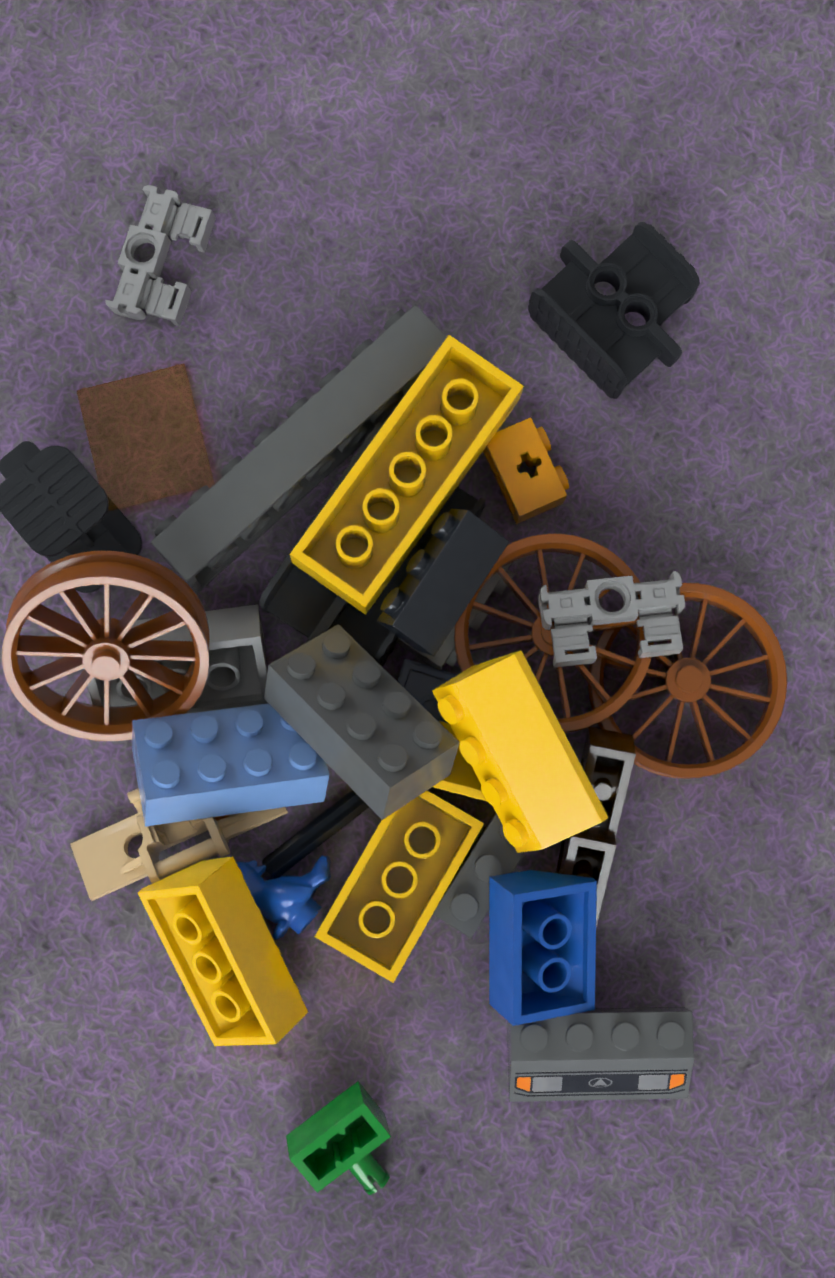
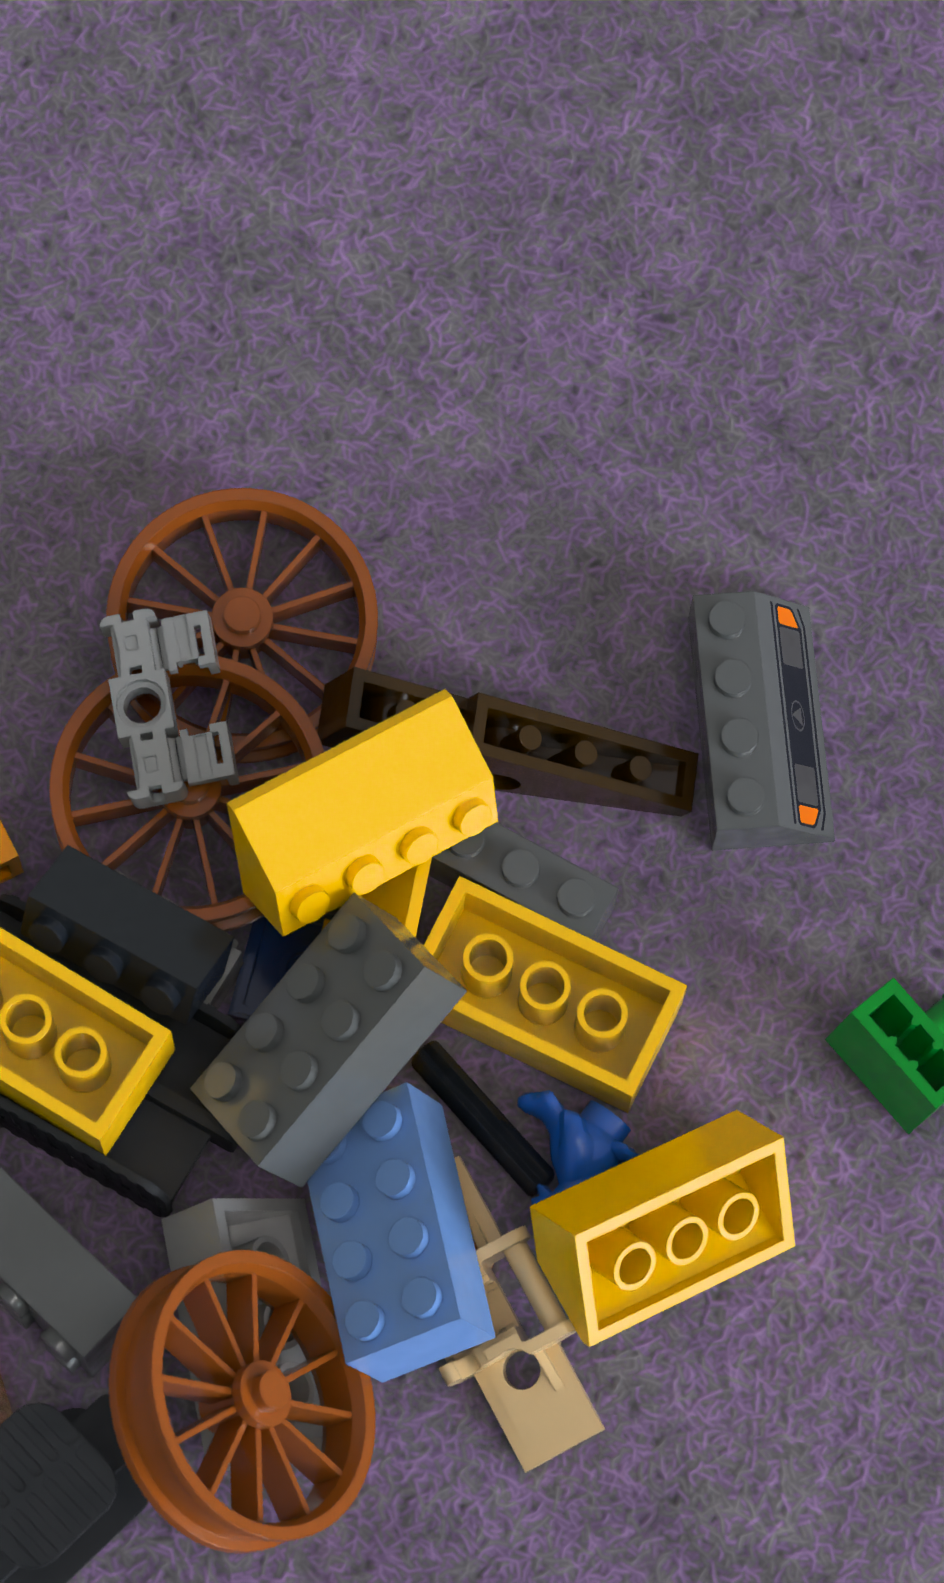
camera: 90 degrees left, 10 degrees down
(541, 945) = (620, 791): blue slope -> none

